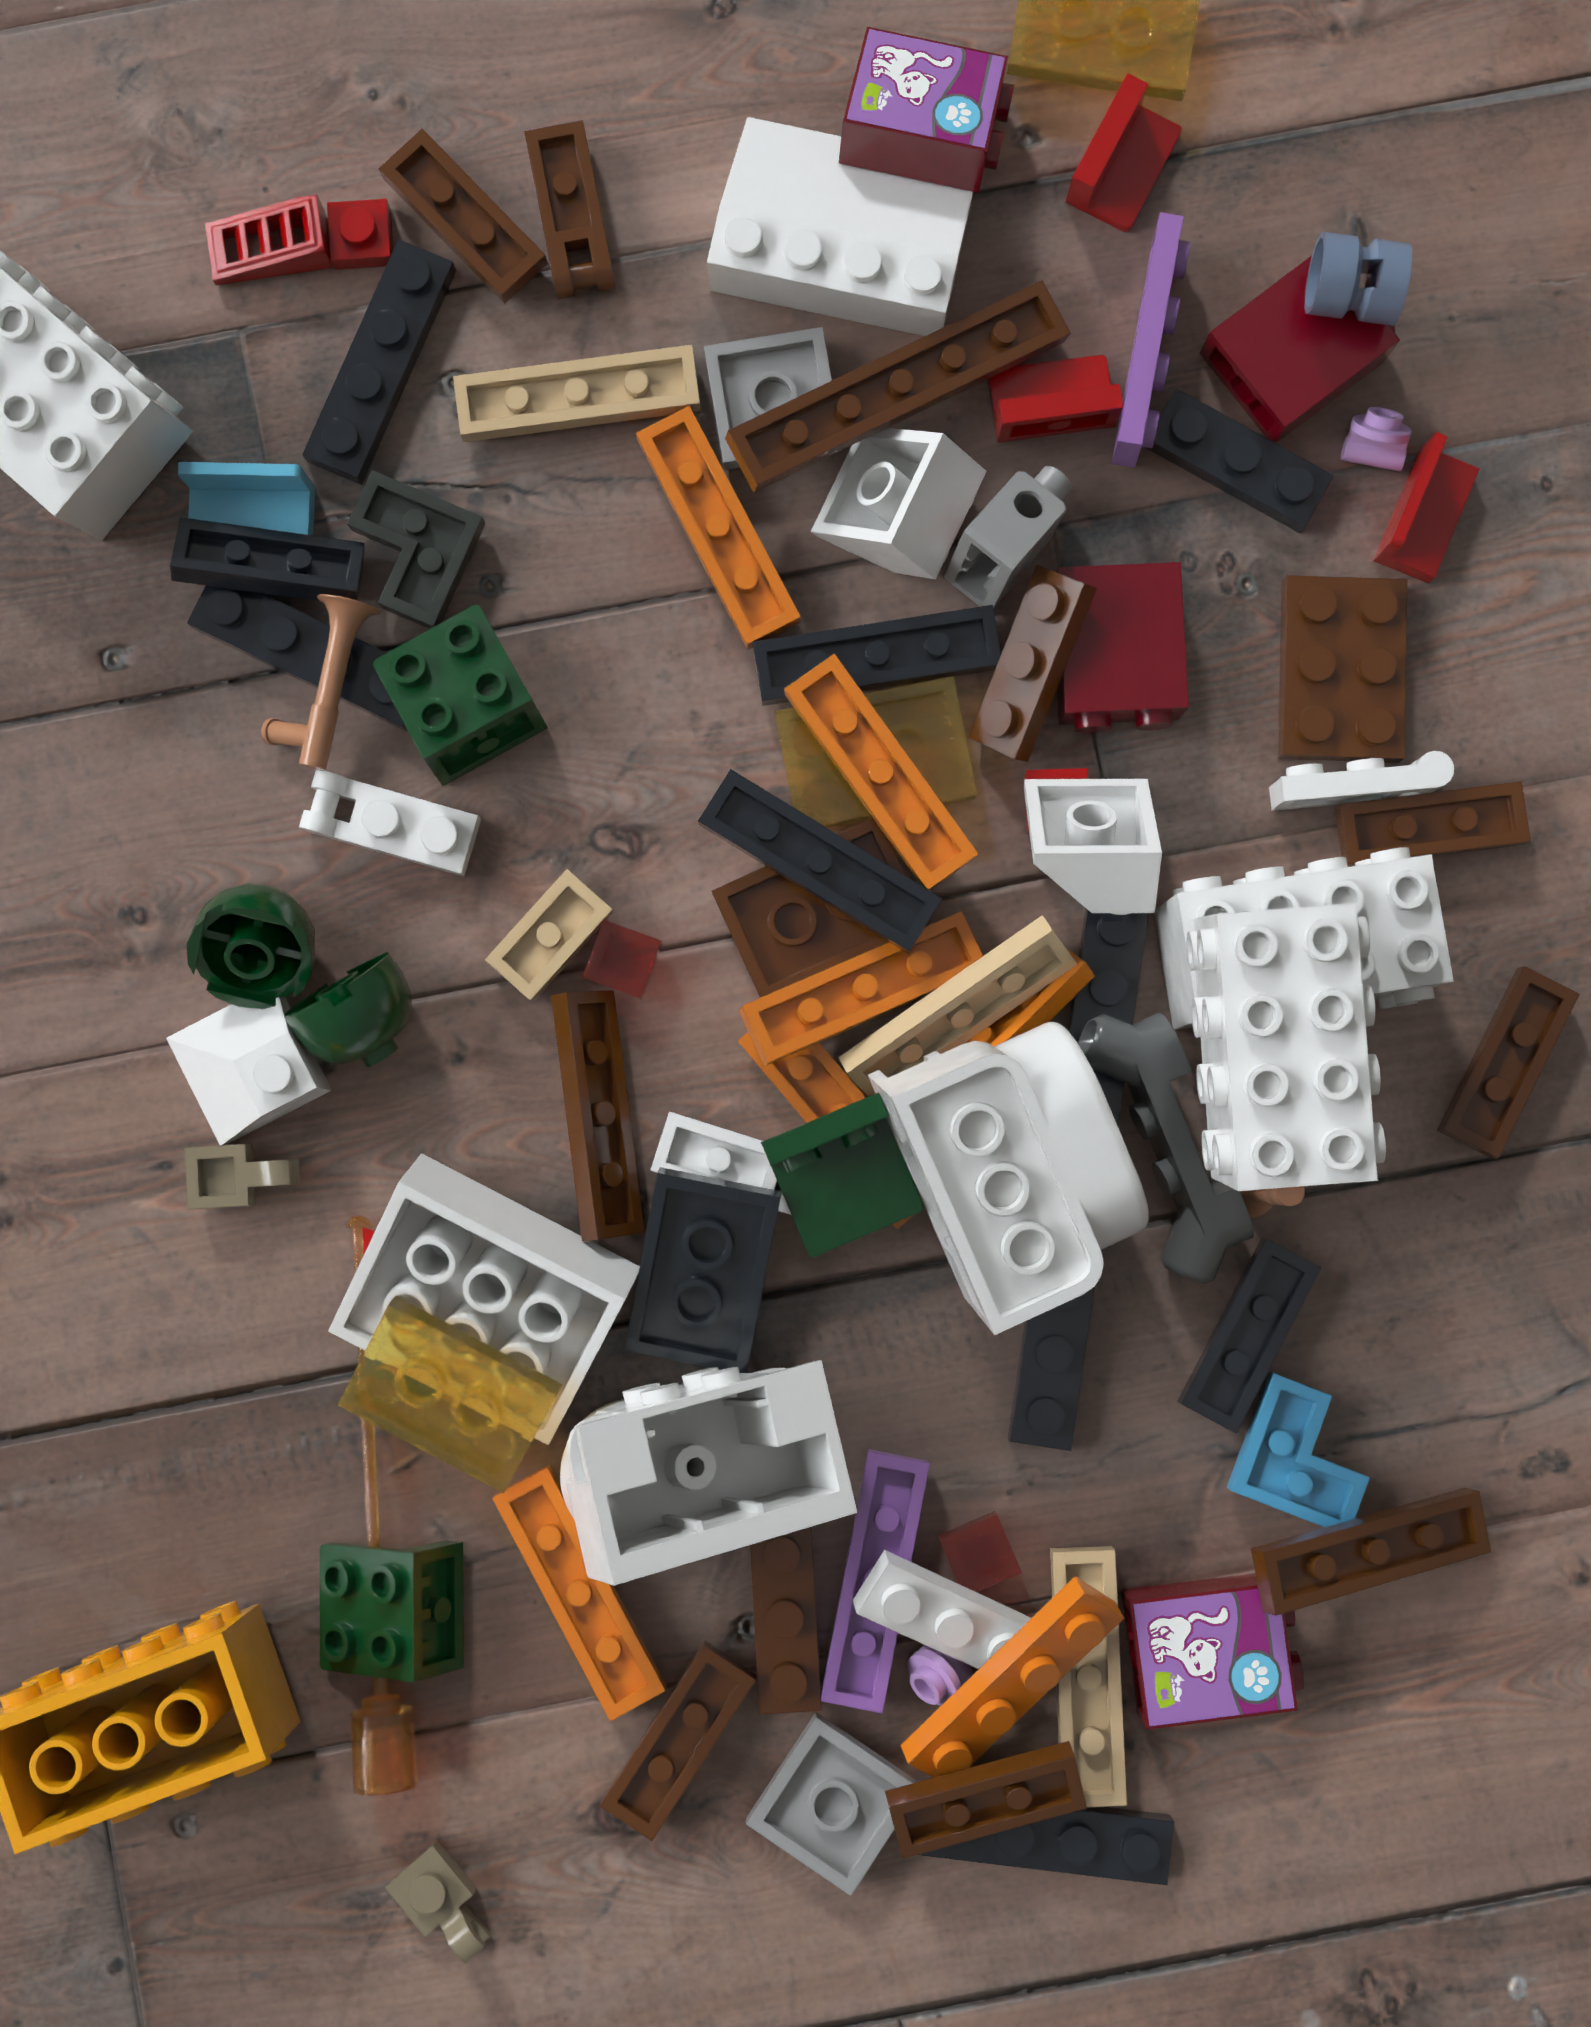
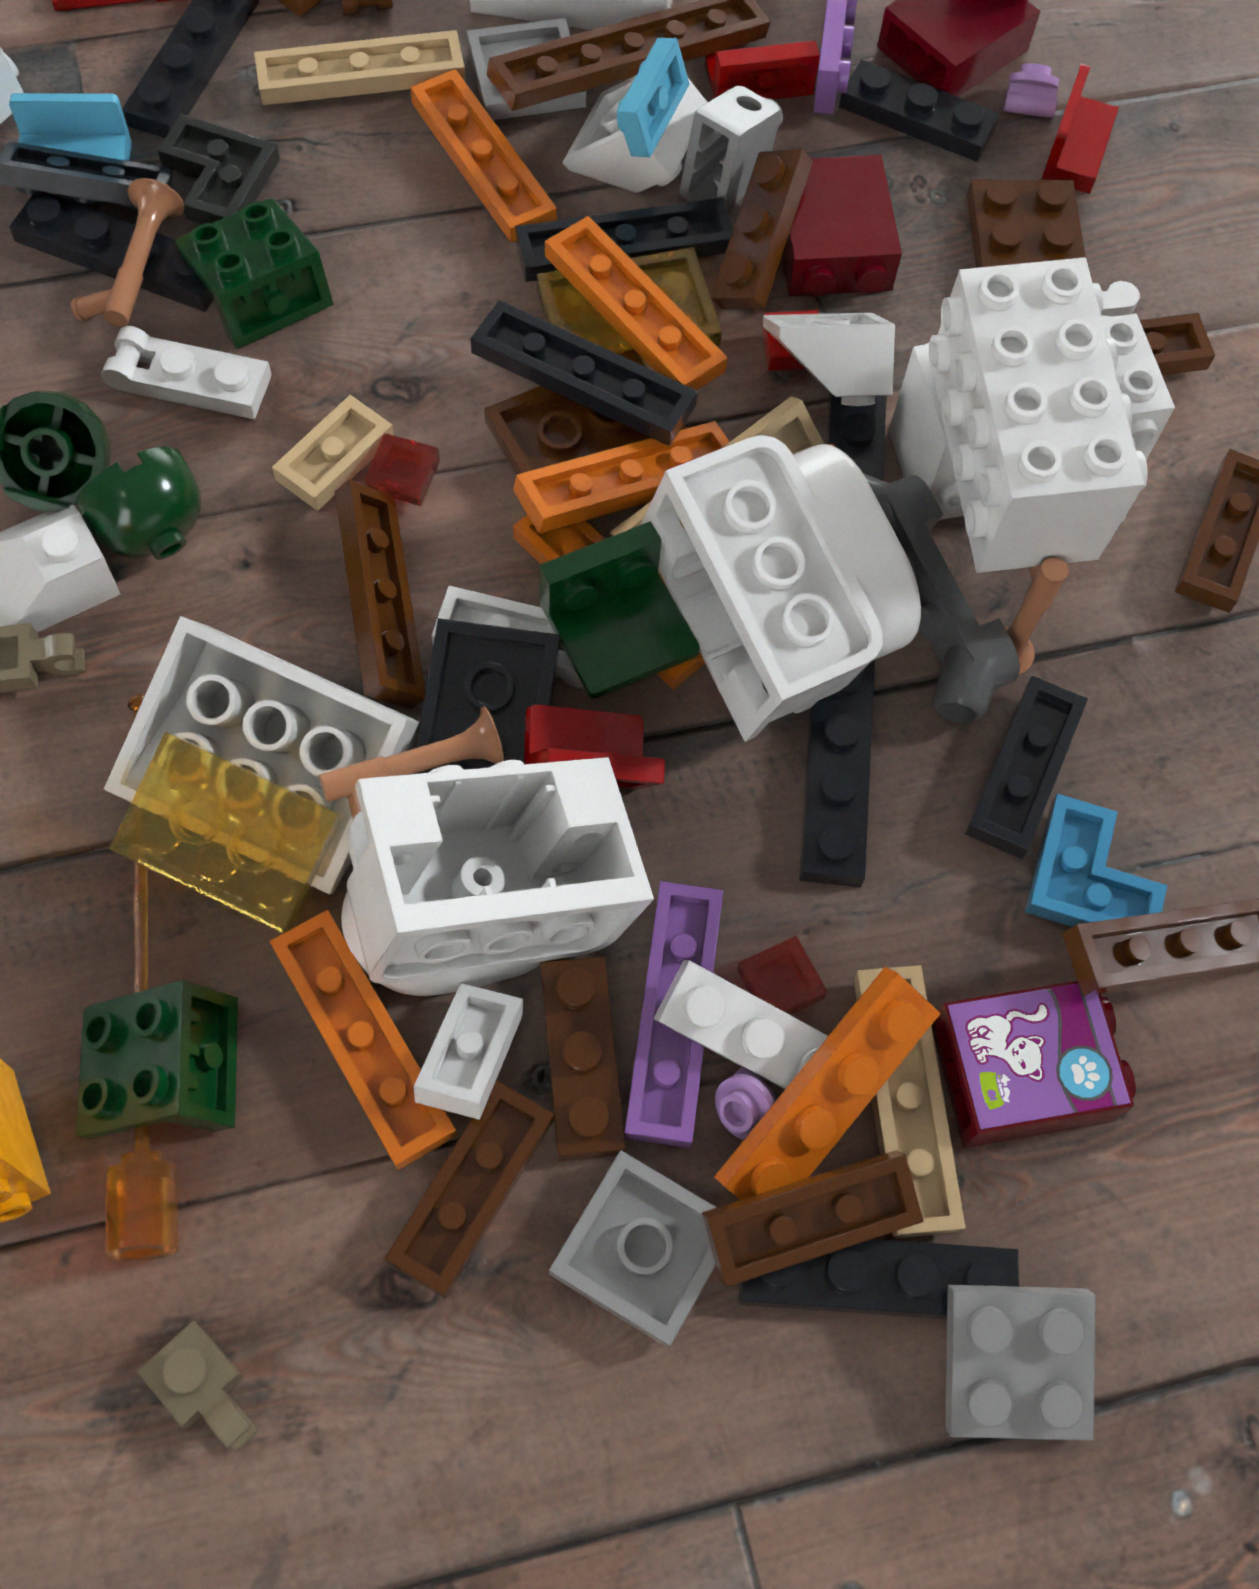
camera: 10 degrees left, 20 degrees down
(578, 1358) = (476, 742): none -> nougat piece
(679, 1621) = (468, 1051): none -> white plate
(805, 1316) = (581, 734): none -> red panel
(921, 500) = (653, 97): none -> medium azure plate
(1161, 1924) = (1020, 1362): none -> light grey plate

